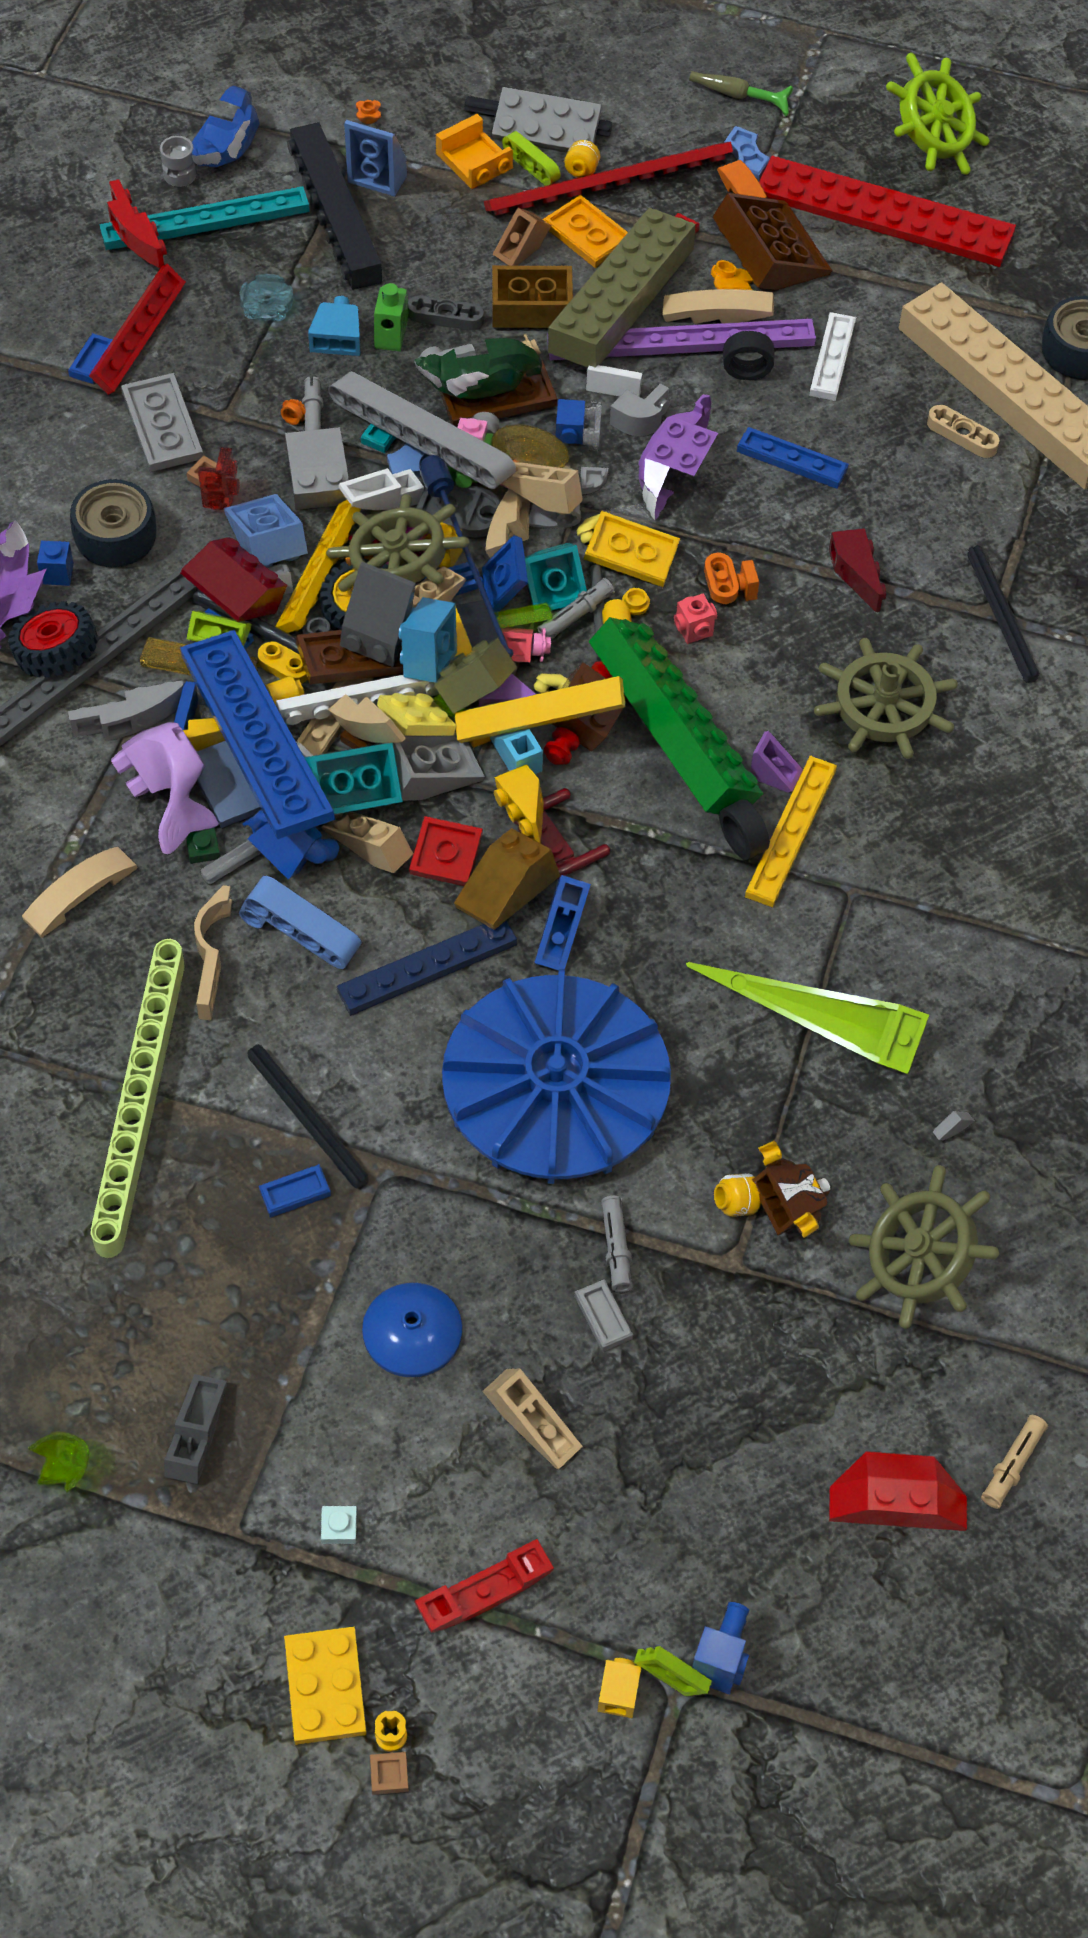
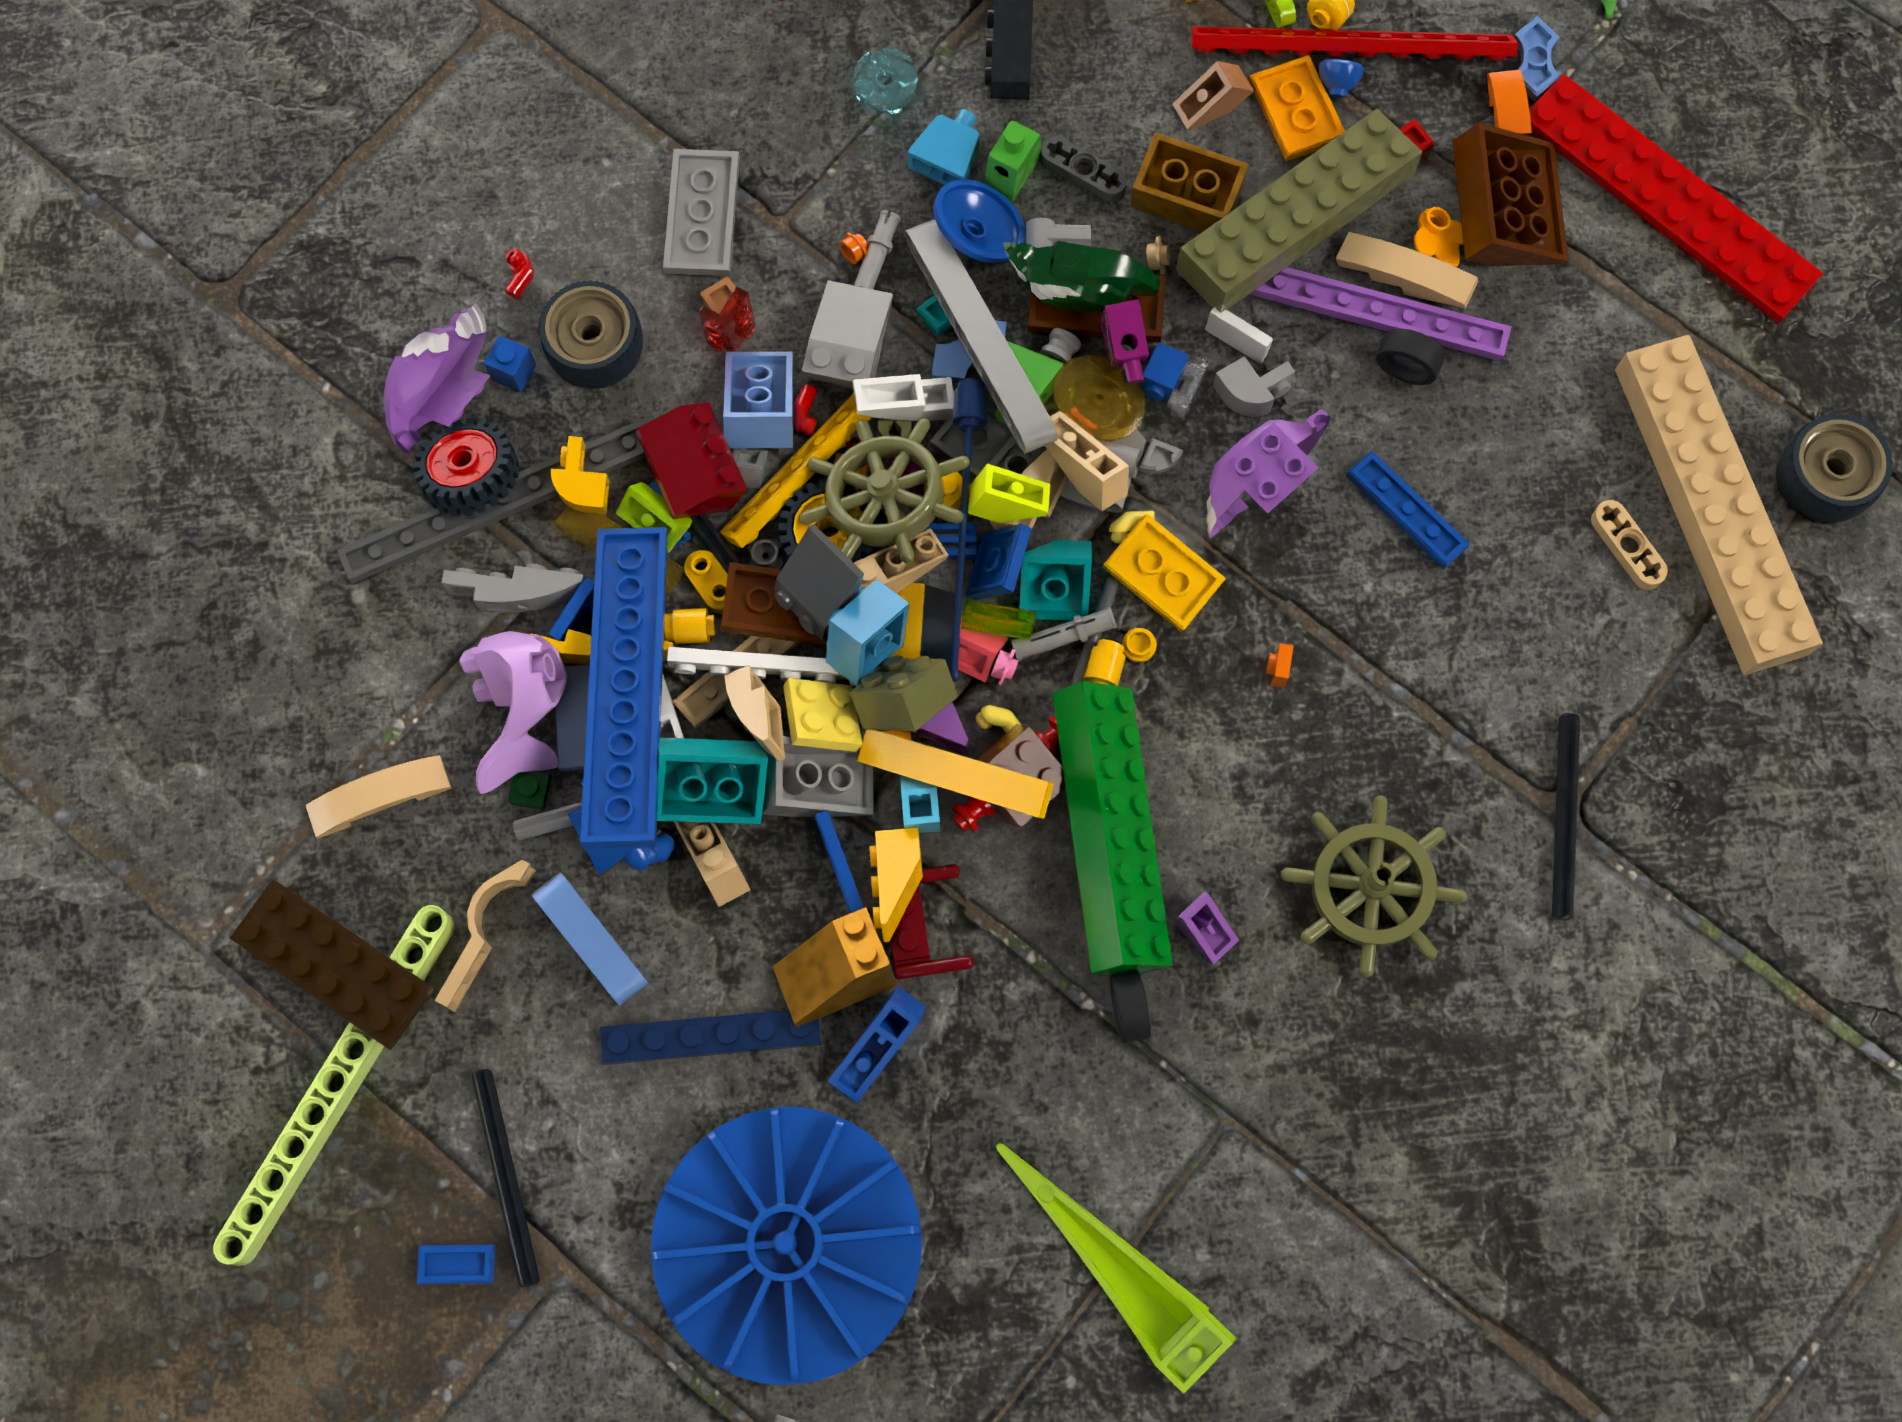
camera: 25 degrees right, 15 degrees up
(33, 502) = (521, 271): none -> red arm
(89, 357) = (660, 97): blue tile -> none
(98, 1007) = (332, 964): none -> dark brown plate
(137, 329) = (723, 76): red plate -> none
(151, 624) = (576, 488): none -> yellow brick
(311, 536) = (801, 407): none -> red arm
(383, 363) = (977, 220): none -> blue dish
(446, 851) = (789, 899): red plate -> none
(472, 810) = (838, 861): none -> blue tile
(474, 427) = (1037, 355): bright pink plate -> none
(492, 523) = (1007, 496): none -> neon yellow slope
(532, 399) = (1121, 326): none -> magenta torso
(610, 199) = (1340, 76): none -> blue brick
(695, 618) = (1192, 706): coral brick -> none
(724, 583) = (1251, 651): orange plate -> none
(791, 831) = (1190, 1017): yellow tile -> none
(832, 356) = (1516, 383): white tile -> none
(854, 563) = (1416, 686): dark red slope -> none
(937, 114) = (1789, 89): lime piece -> none

